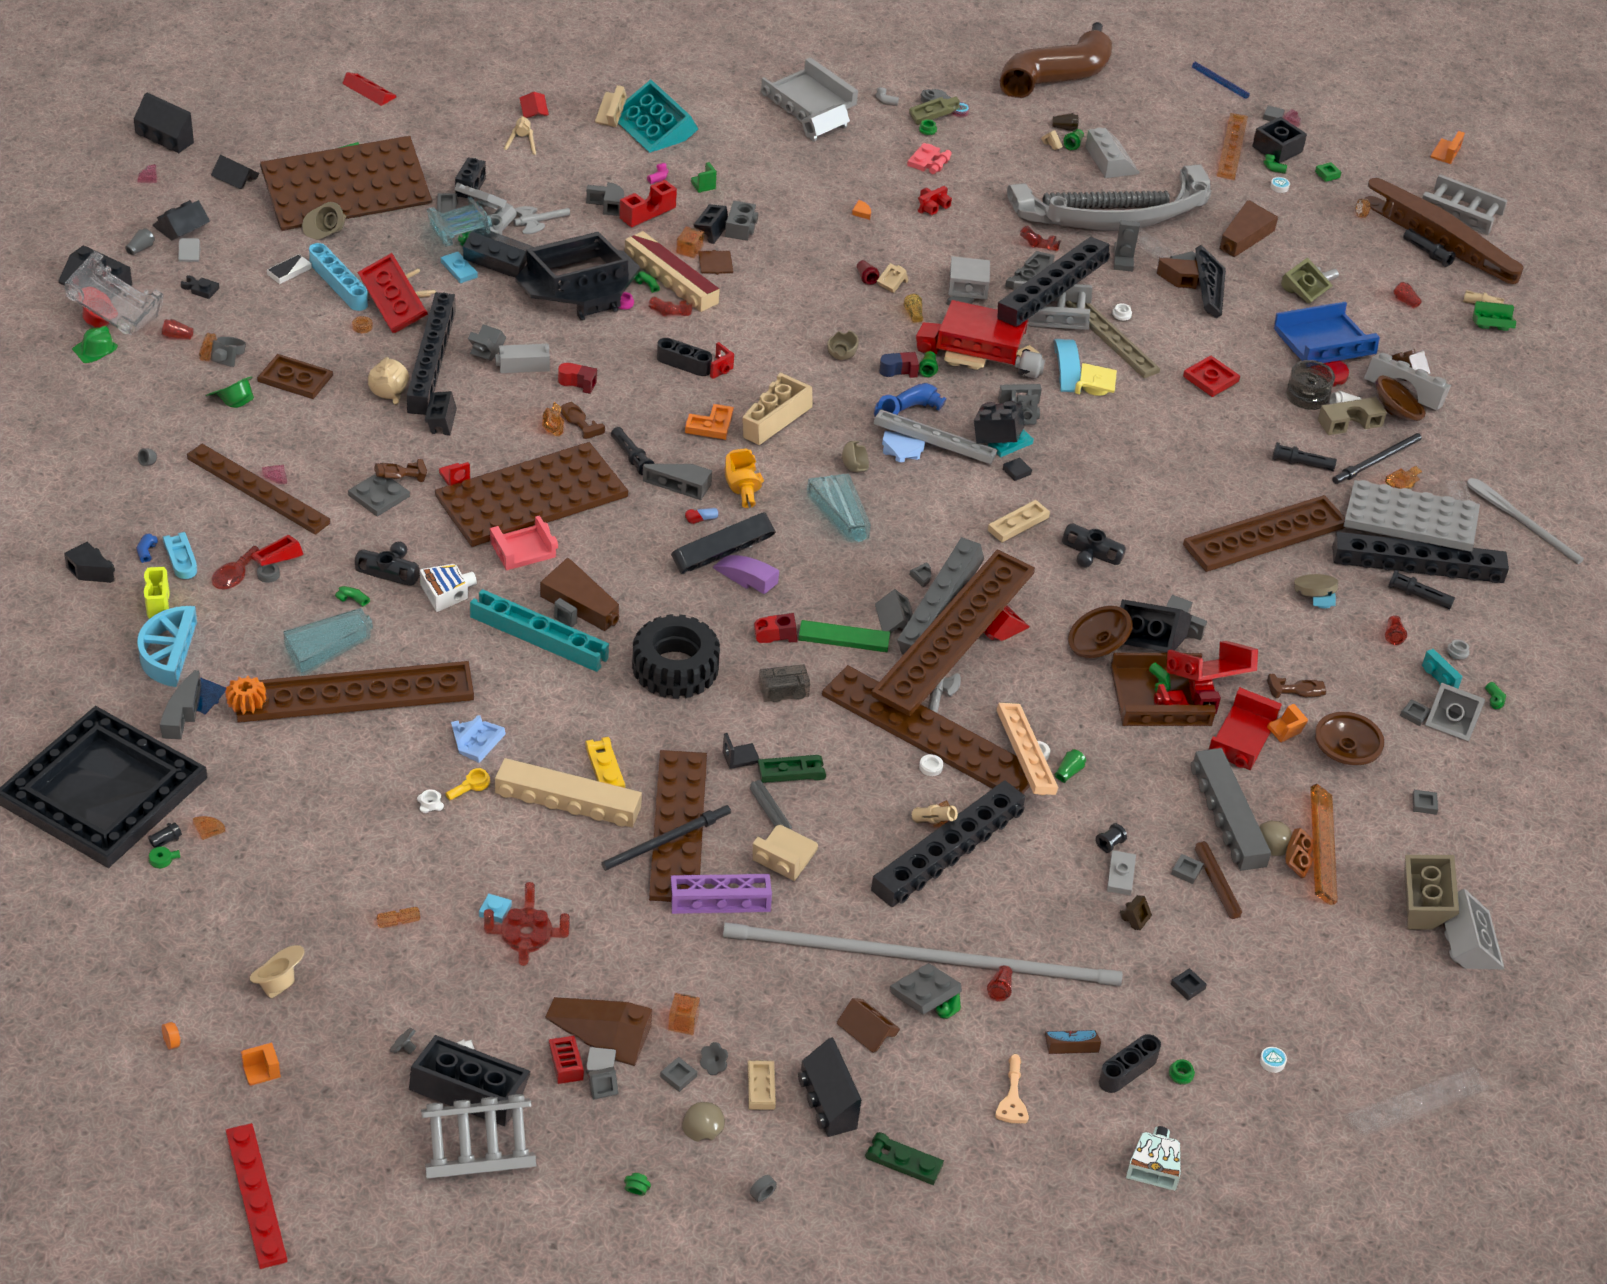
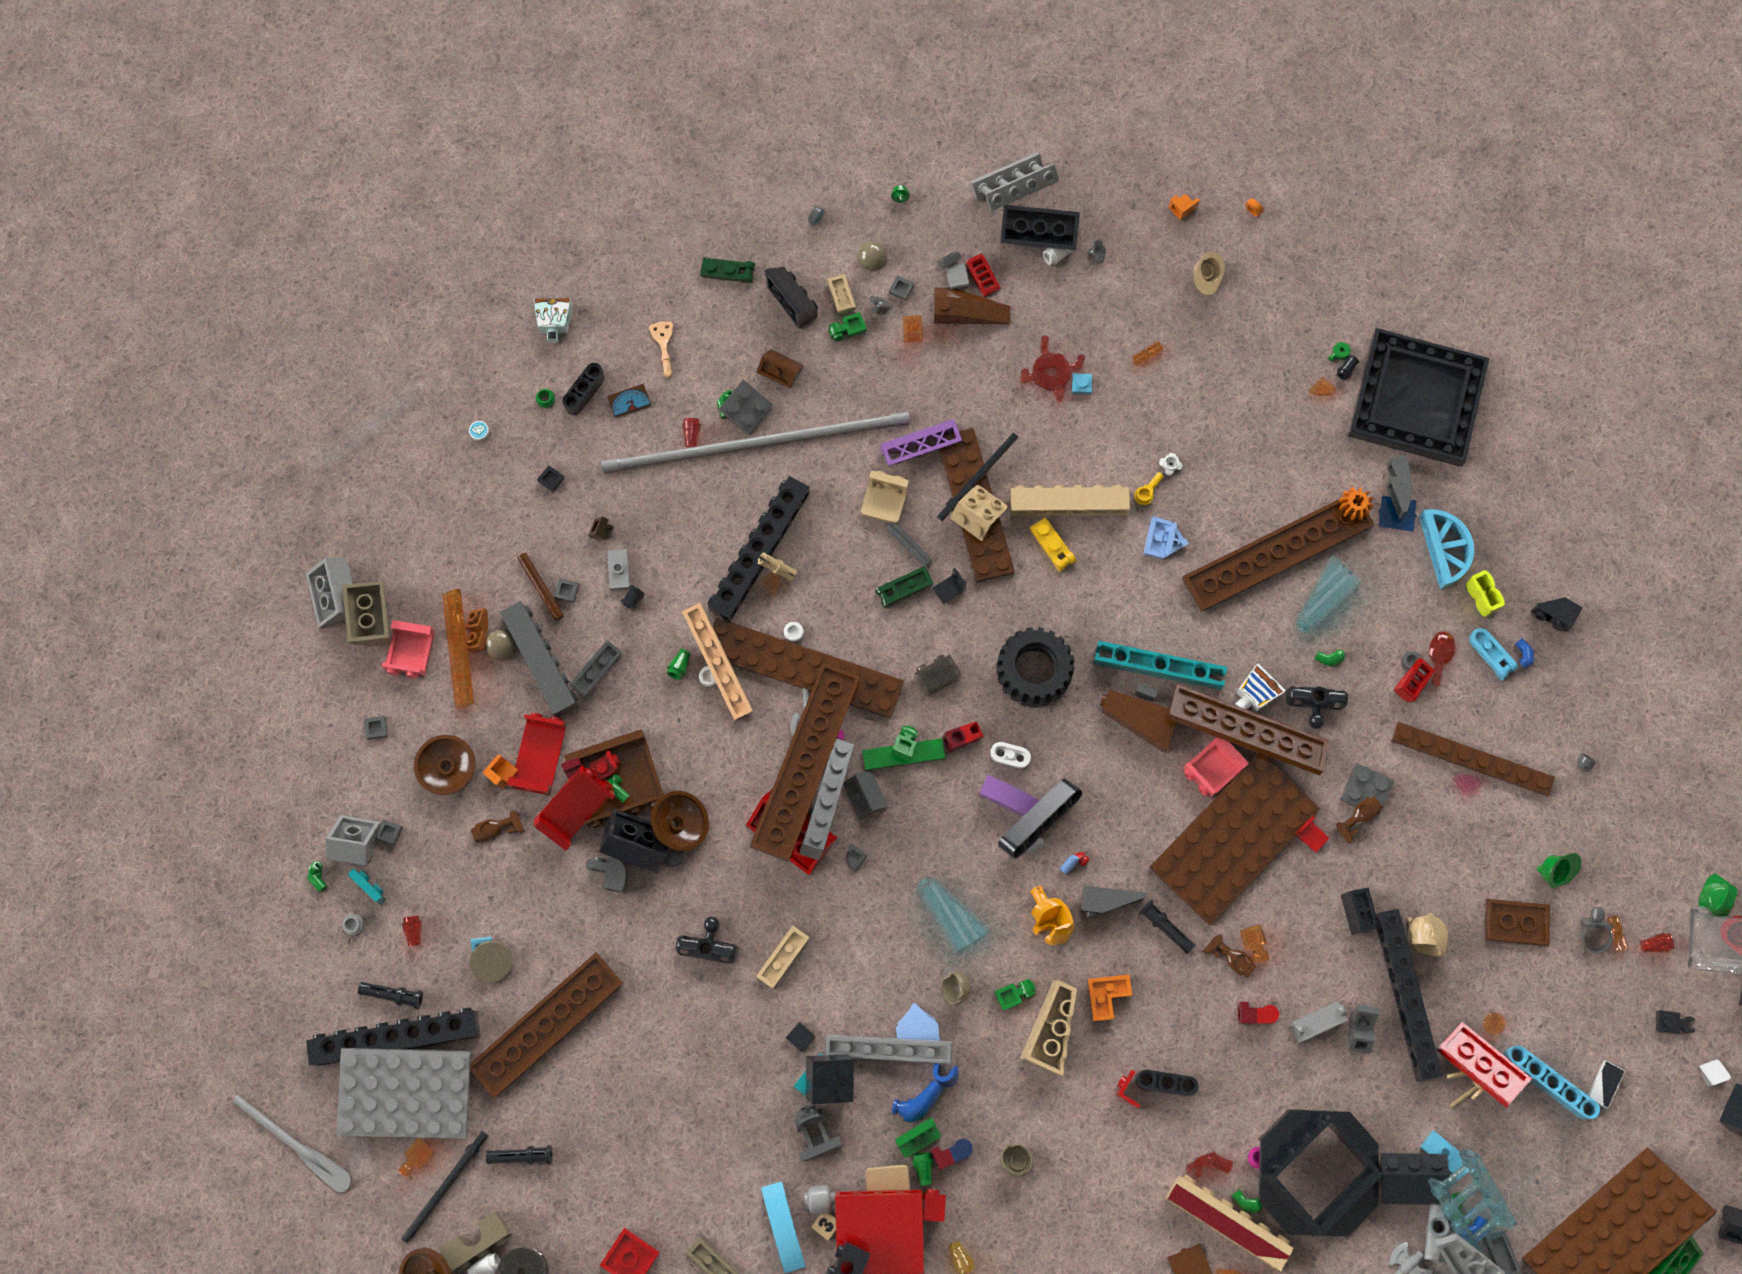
camera: 170 degrees right, 30 degrees up
(256, 1196) = (1141, 118): red plate -> none
(324, 221) = (1608, 1166): dark tan piece -> none
(477, 551) = (1248, 729): none -> reddish brown plate
(677, 799) = (978, 511): none -> tan bracket
(732, 605) = (1010, 754): none -> white plate
(759, 1045) = (851, 324): none -> green plate
(805, 444) = (1010, 996): none -> green plate
(841, 631) = (905, 743): none -> green plate
(937, 376) = (918, 1138): none -> green bracket
(1096, 380) = (746, 1204): light yellow hat -> none
(1166, 782) = (595, 669): none -> dark grey tile
(1382, 856) = (409, 649): none -> coral panel

